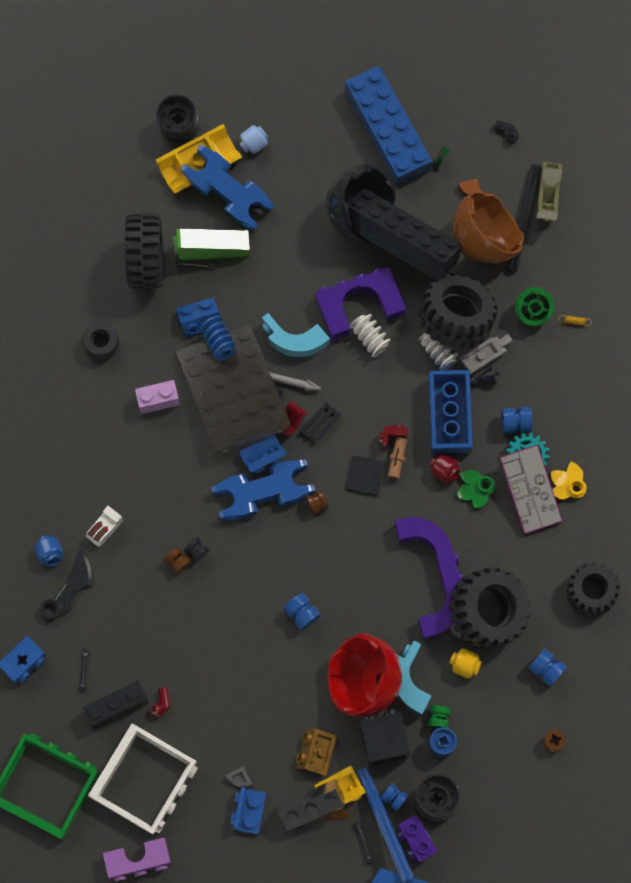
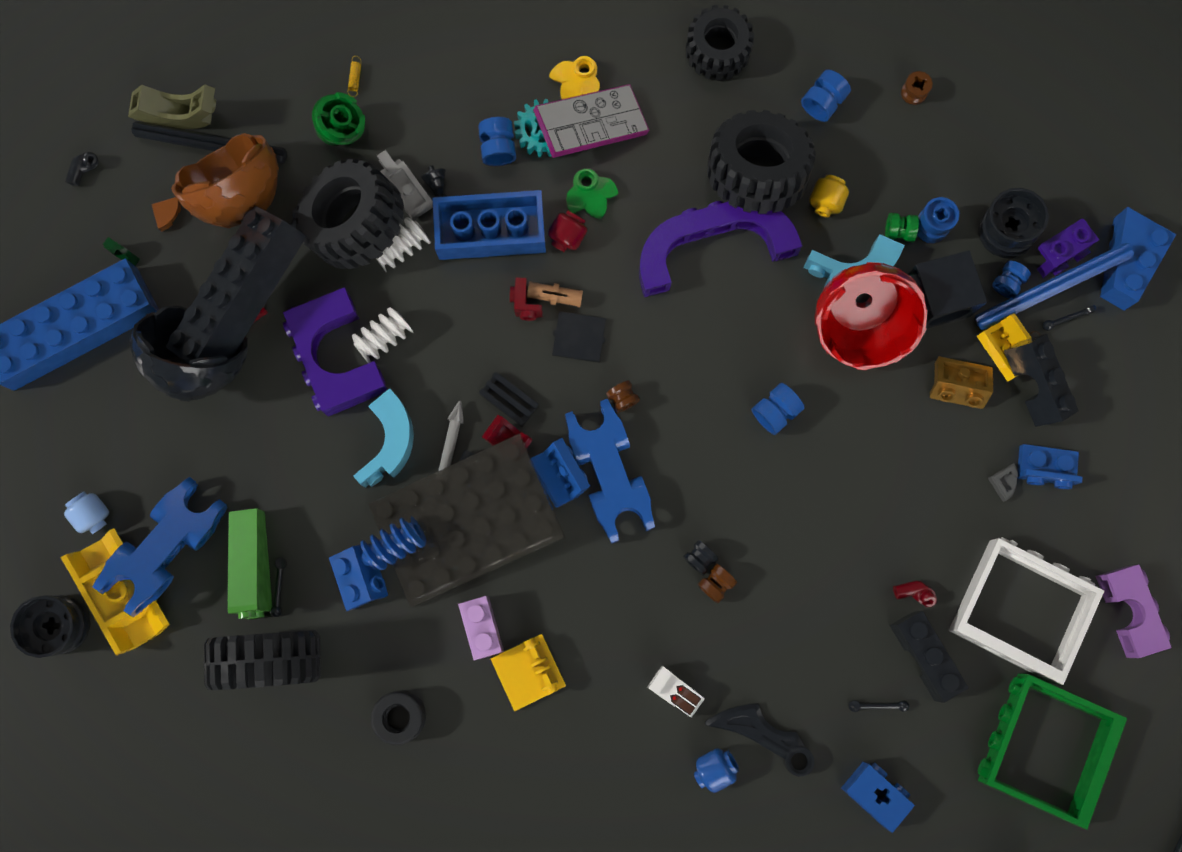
camera: 90 degrees left, 5 degrees up
(125, 428) = (528, 672): none -> yellow hinge

